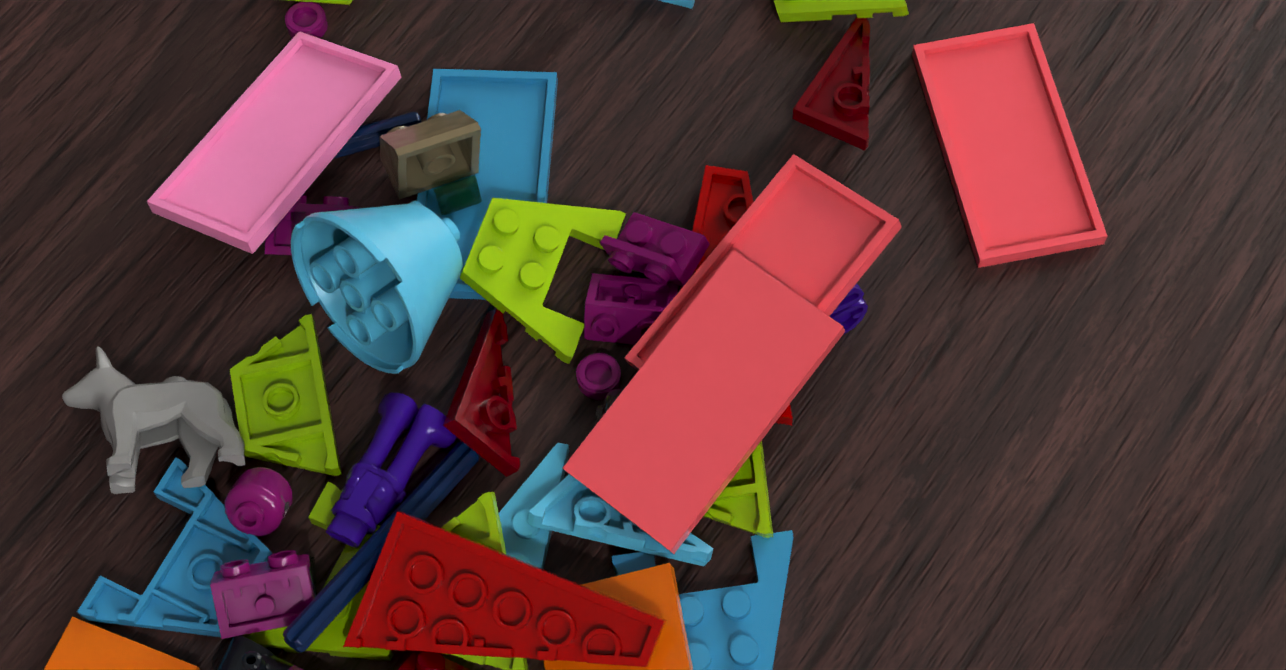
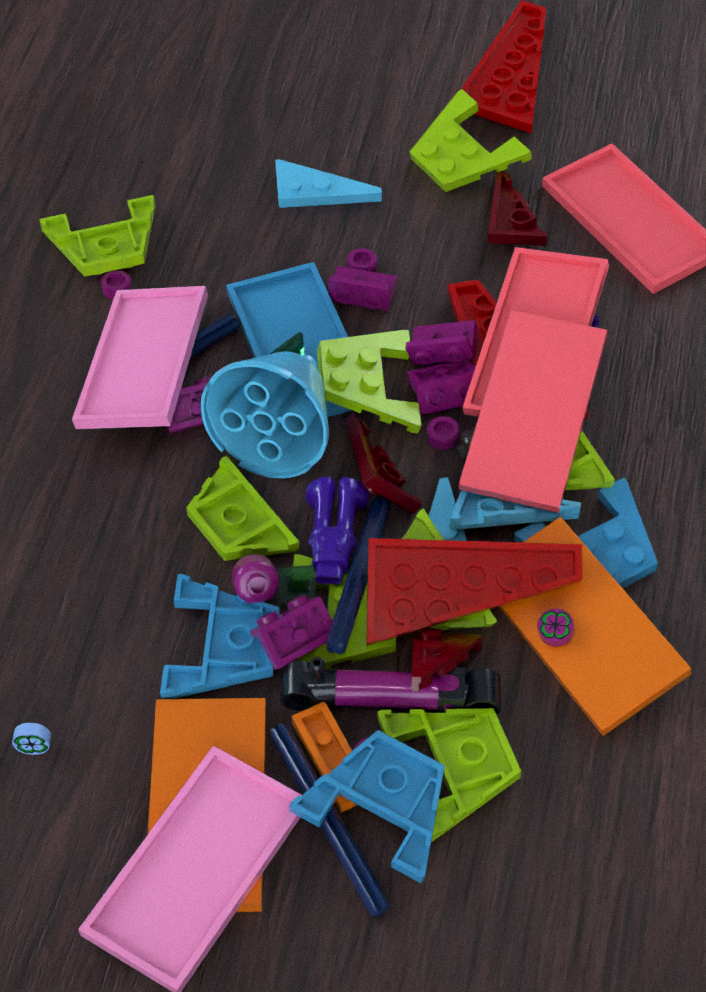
camera: 25 degrees left, 10 degrees down
(156, 414) = (151, 549): light grey animal -> none
(304, 530) = (296, 582): none -> clear green slope
(431, 152) = (260, 327): dark tan slope -> none
(600, 130) = (362, 288): none -> magenta bracket
(619, 92) = (363, 260): none -> magenta tile

